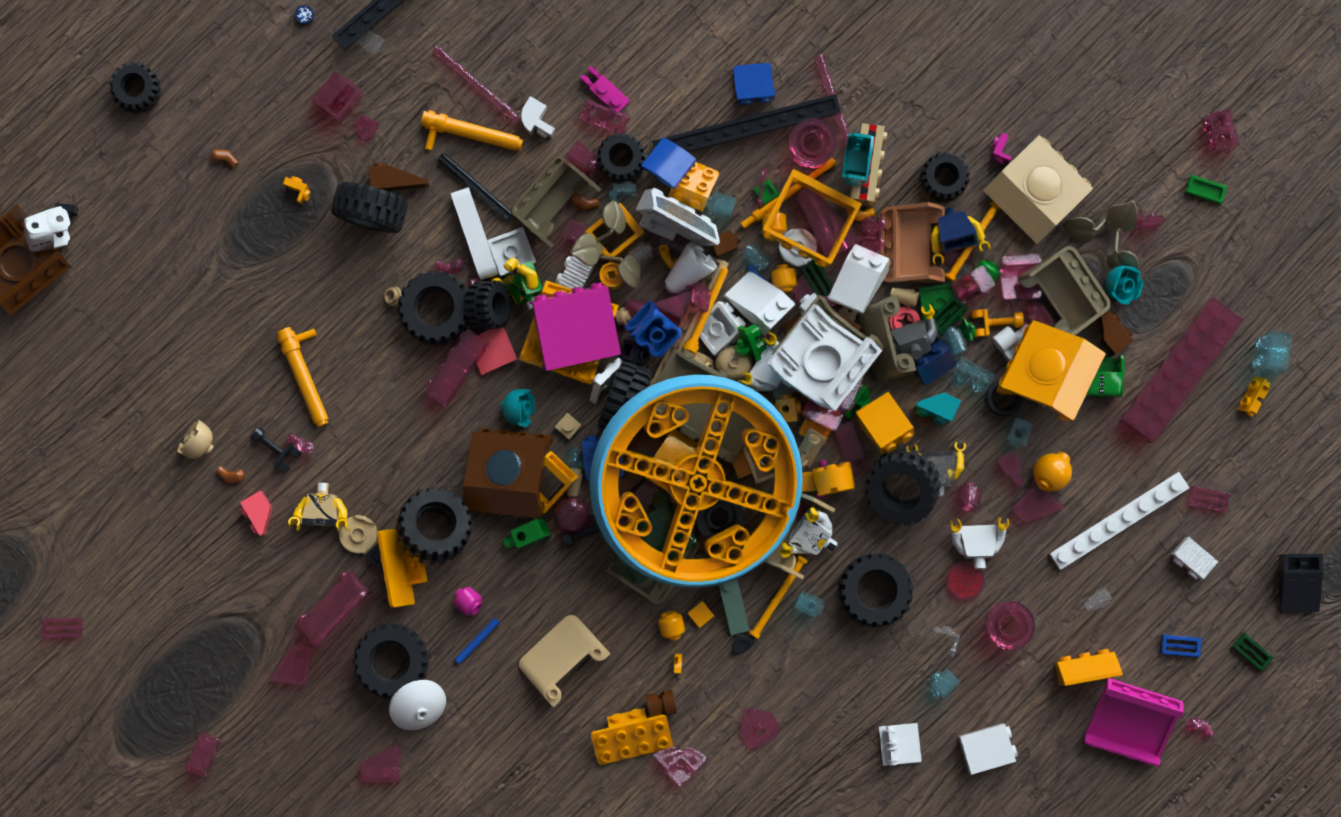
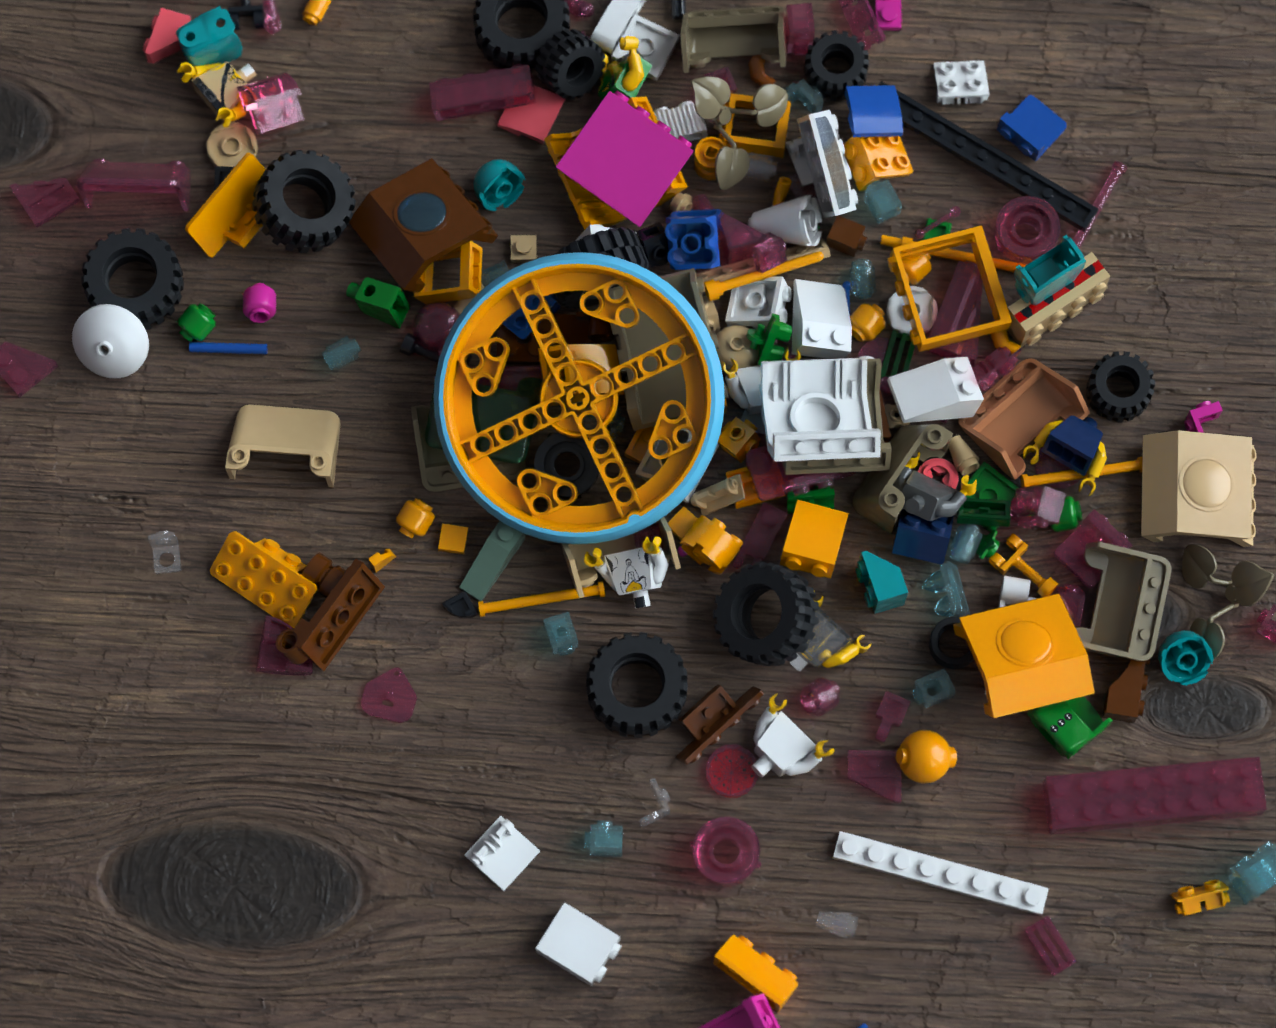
camera: 50 degrees right, 10 degrees down
(286, 494) = (207, 43): none -> teal piece
(354, 490) = (272, 102): none -> clear pink brick
(447, 646) = (196, 322): none -> green head
(538, 581) = (341, 353): none -> clear light blue brick
(561, 774) = (162, 543): none -> clear bracket
(691, 96) = (960, 81): none -> white hinge
(692, 721) = (326, 632): none -> reddish brown hinge
(929, 564) = (712, 717): none -> reddish brown bracket
(1194, 558) = (973, 983): white brick -> none

